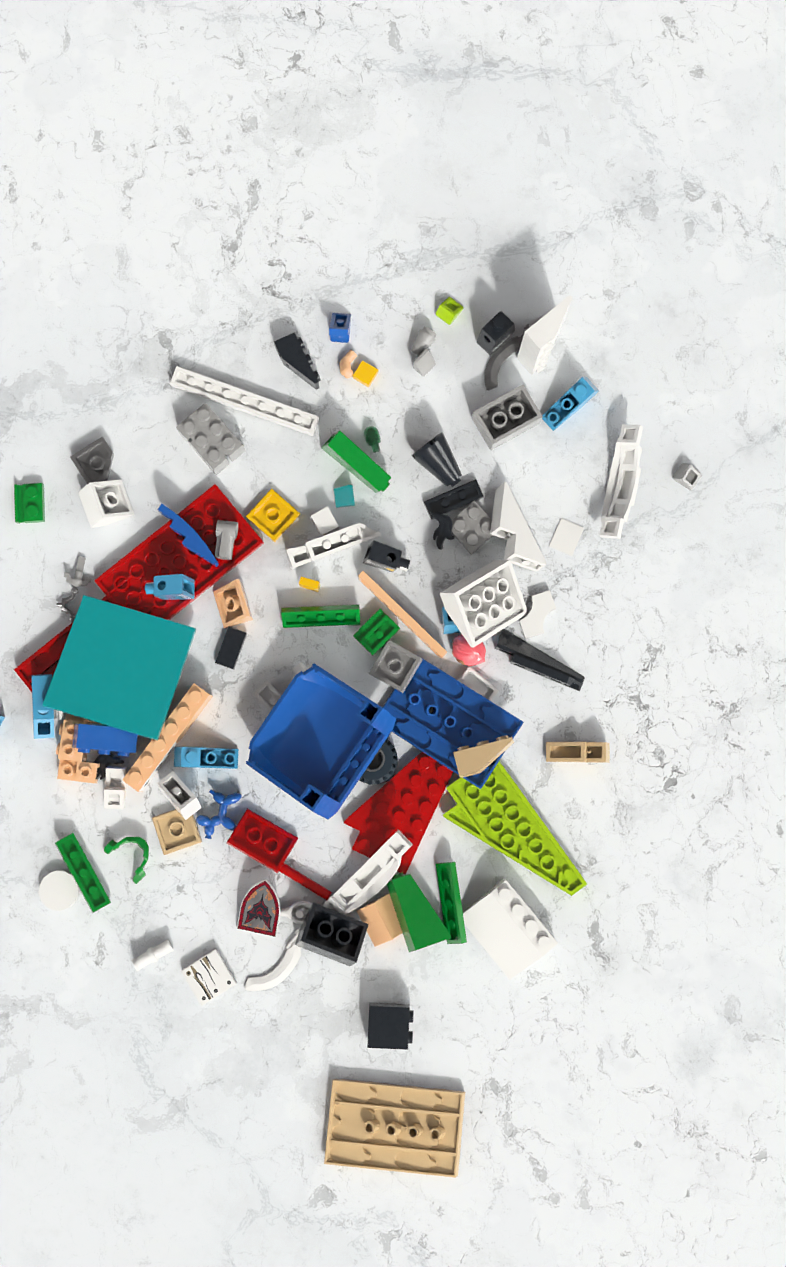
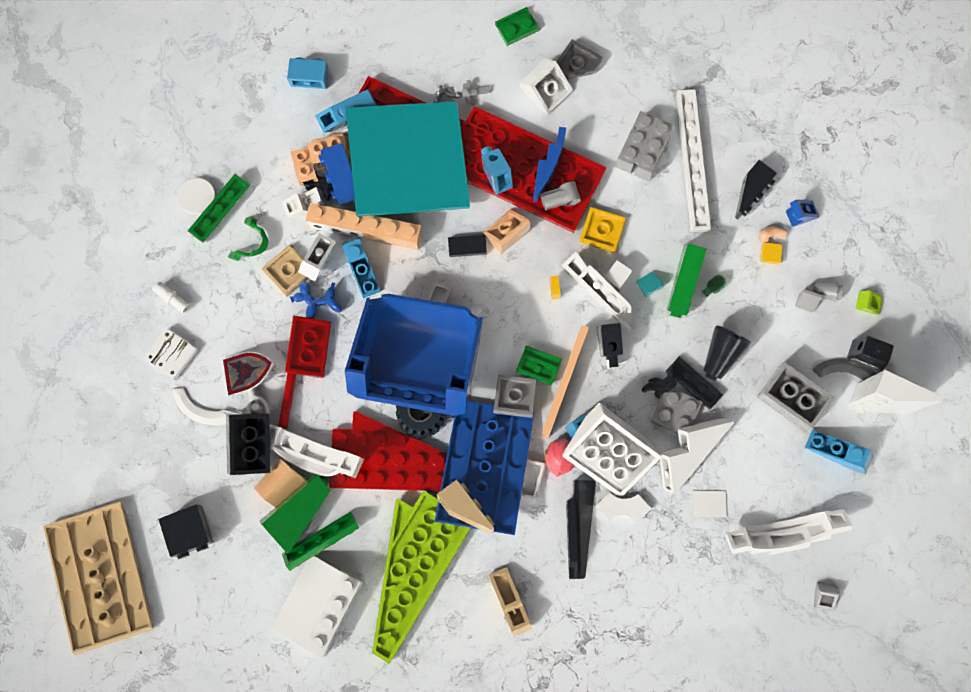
camera: 70 degrees right, 5 degrees down
(320, 616) = (531, 310): green plate -> none

